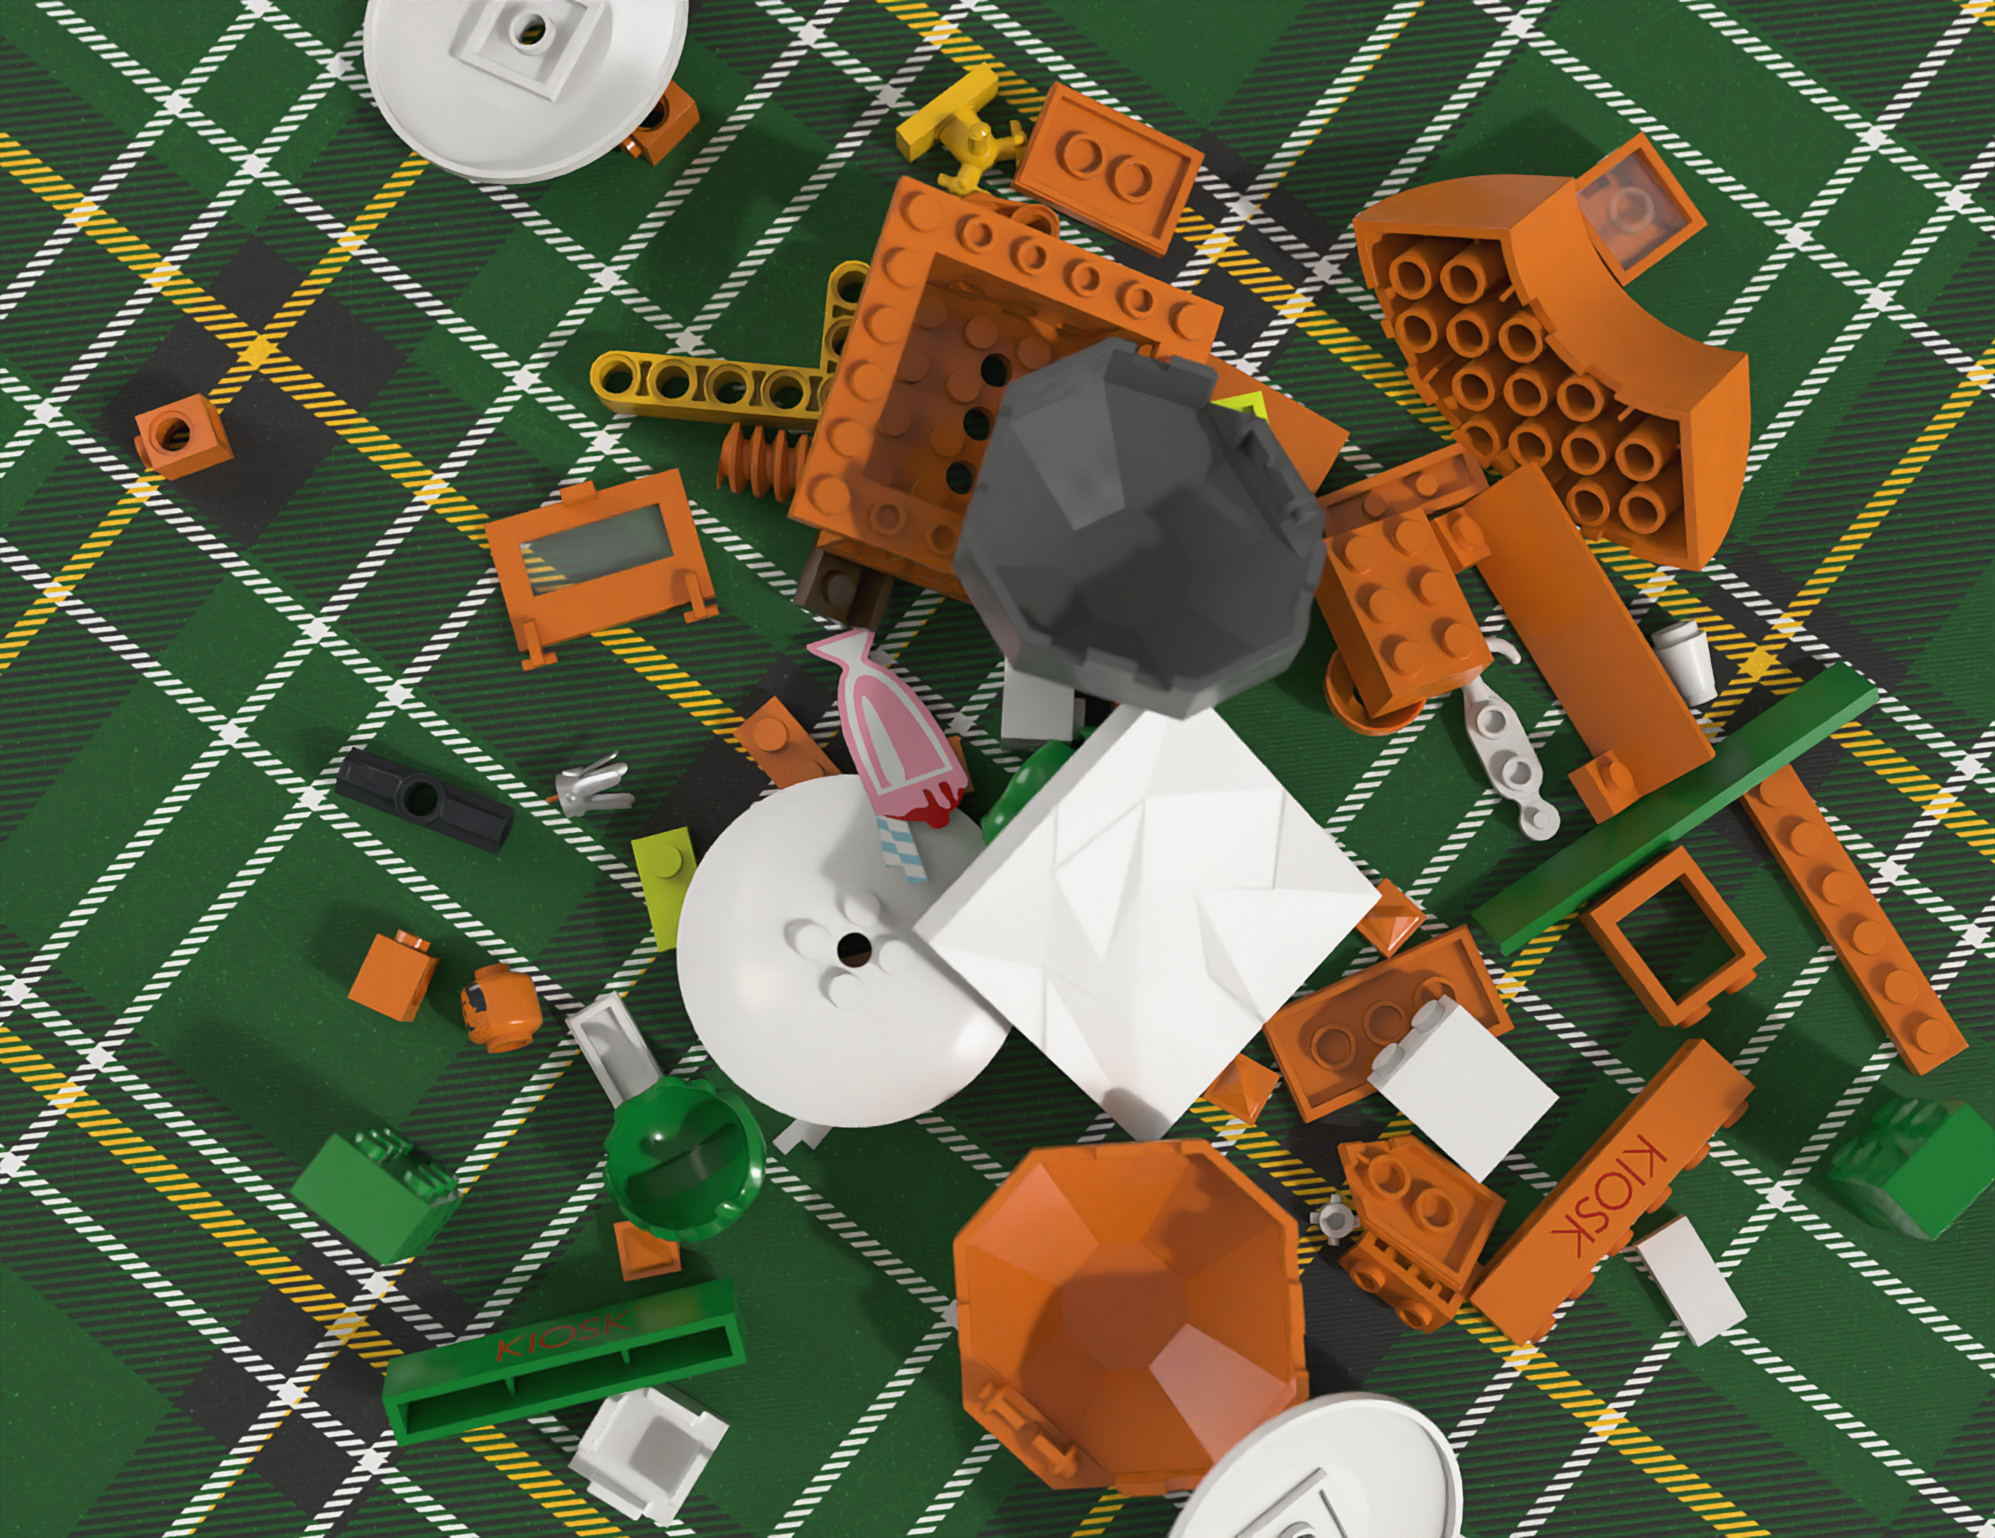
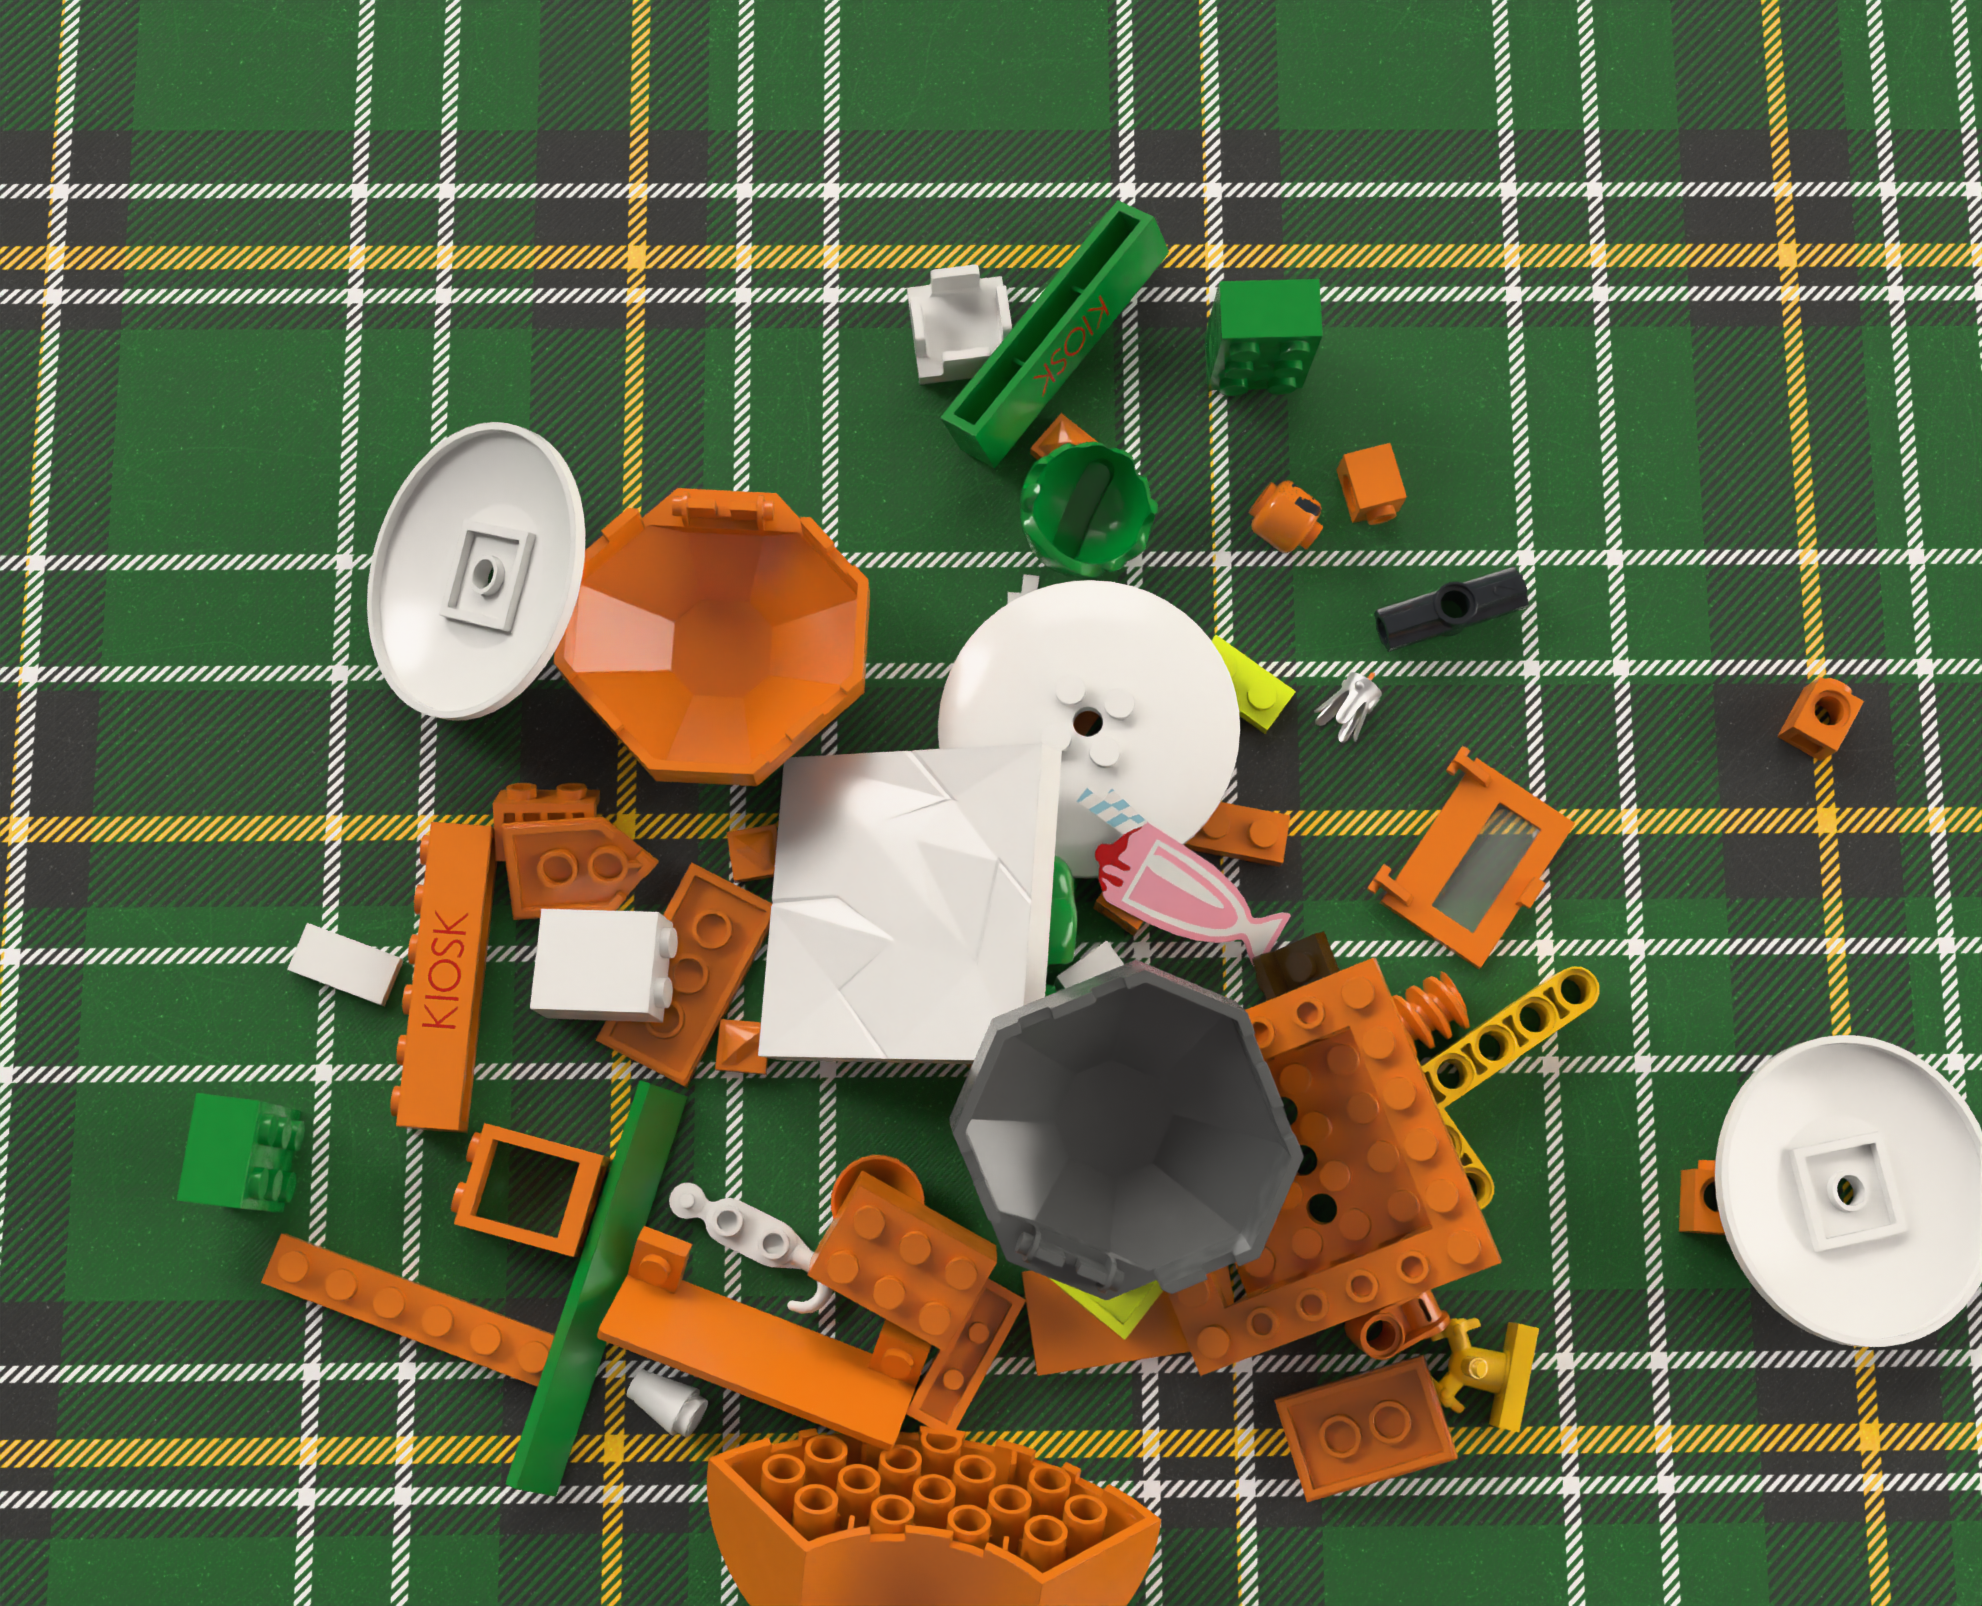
camera: 140 degrees right, 5 degrees down
(615, 1048) = (1189, 553): white tile -> none
(1335, 1220) = (623, 814): white piece -> none

